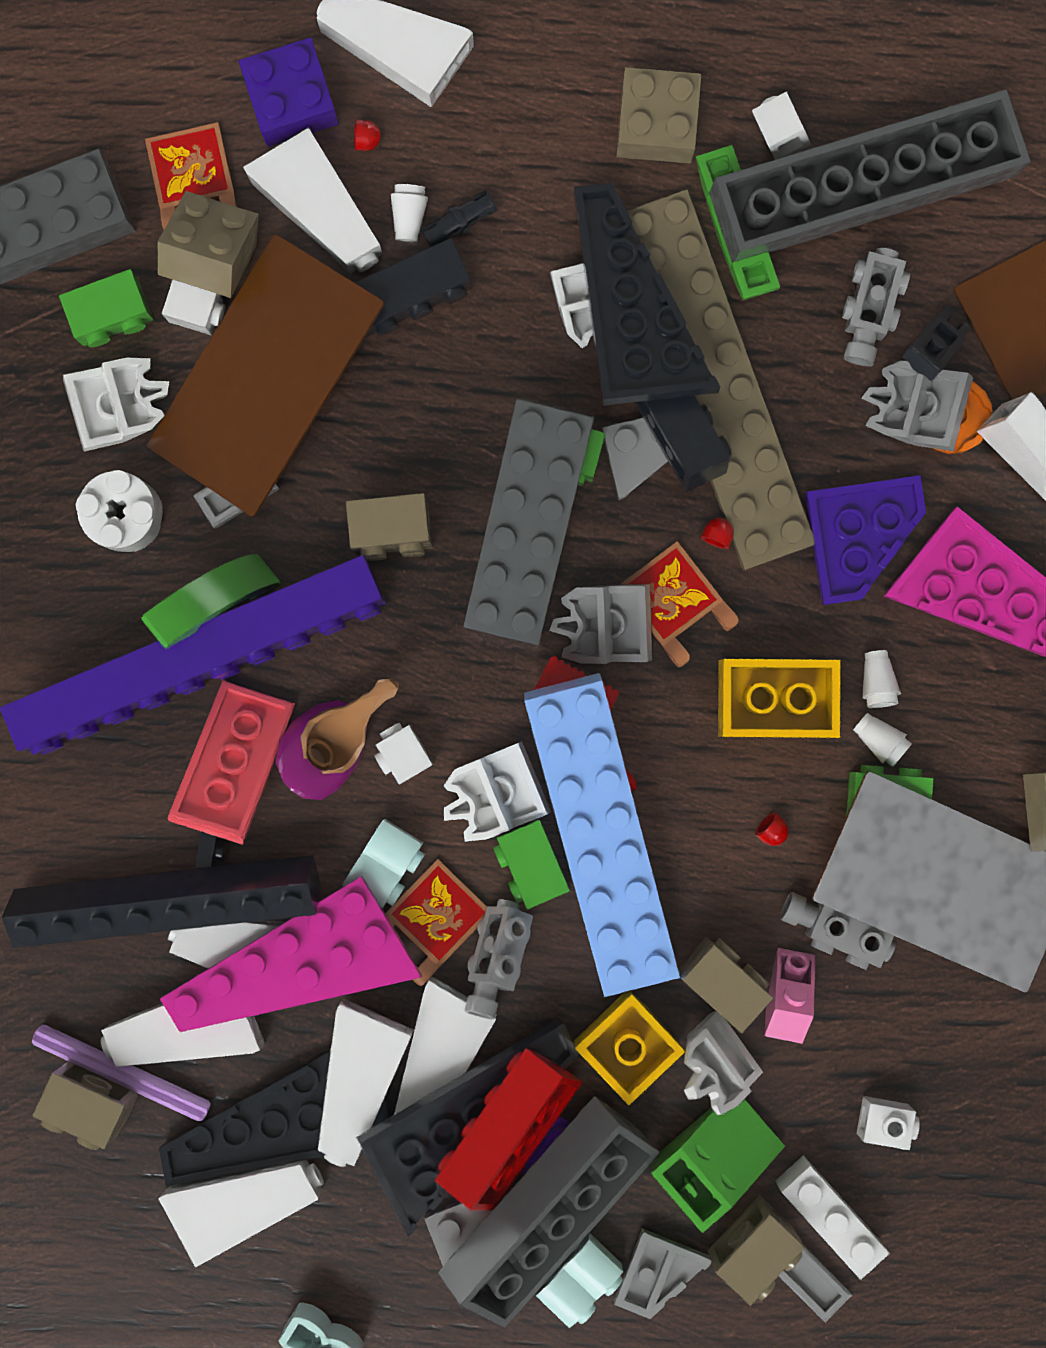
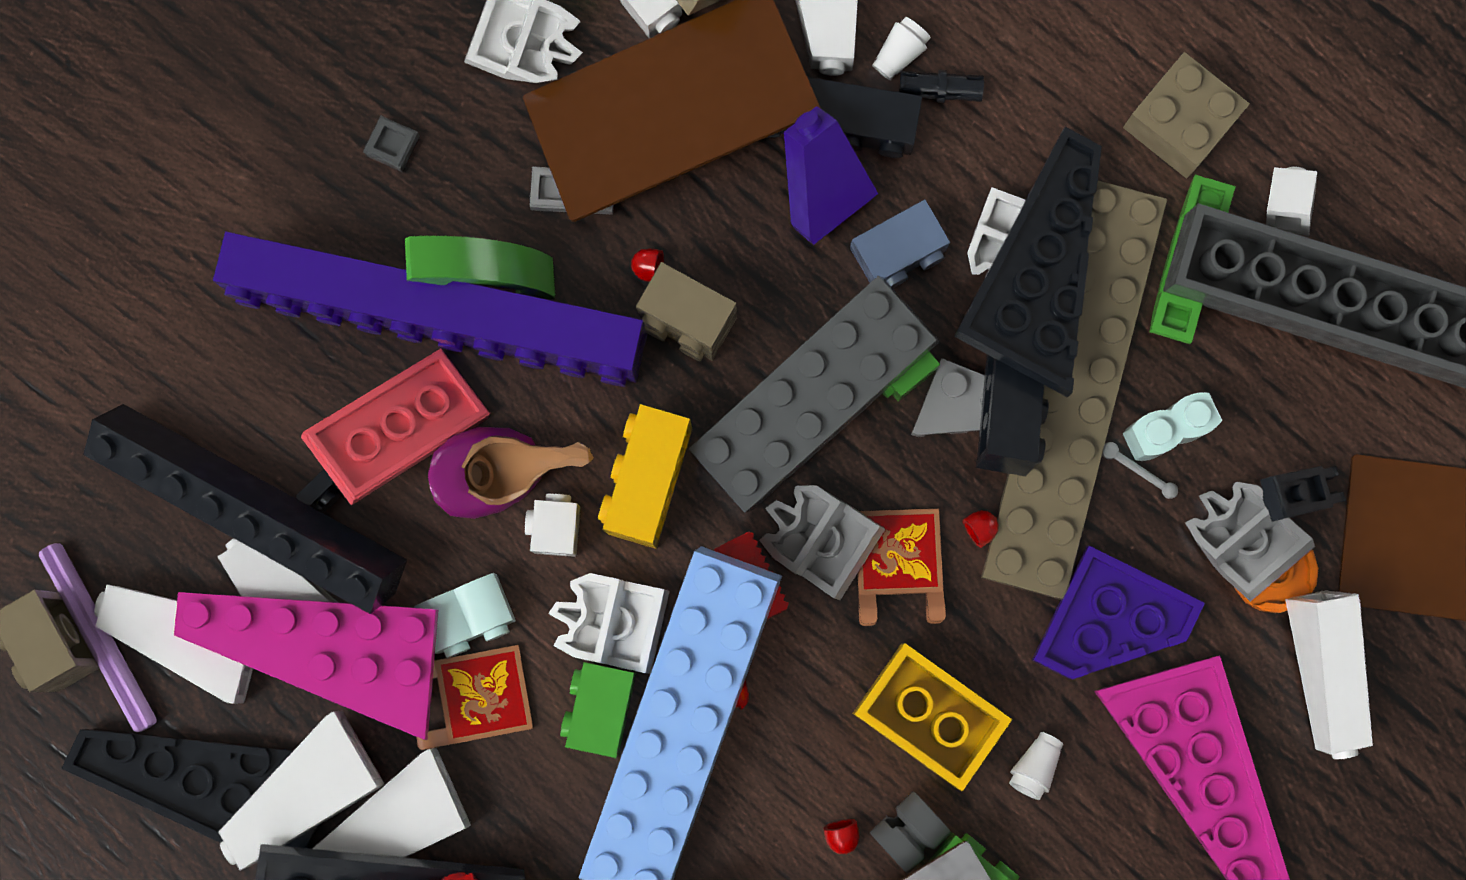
camera: 40 degrees right, 5 degrees down
(72, 552) = (391, 143): none -> dark grey tile
(98, 507) = (441, 119): white brick -> none
(233, 1207) = (105, 831): white slope -> none
(333, 508) = (646, 263): none -> red hinge
(419, 350) = (822, 175): none -> dark purple slope
(445, 668) = (645, 475): none -> yellow brick
(500, 955) = (511, 774): light grey brick -> none
(513, 363) = (901, 245): none -> sand blue brick
(775, 409) = (1168, 489): none -> light grey hinge
(806, 364) = (1167, 428): none -> light aqua brick
(821, 793) = (910, 832): none -> dark grey wheel
(875, 300) = (1270, 414): light grey brick -> none
(882, 739) = (1002, 823): white cone -> none

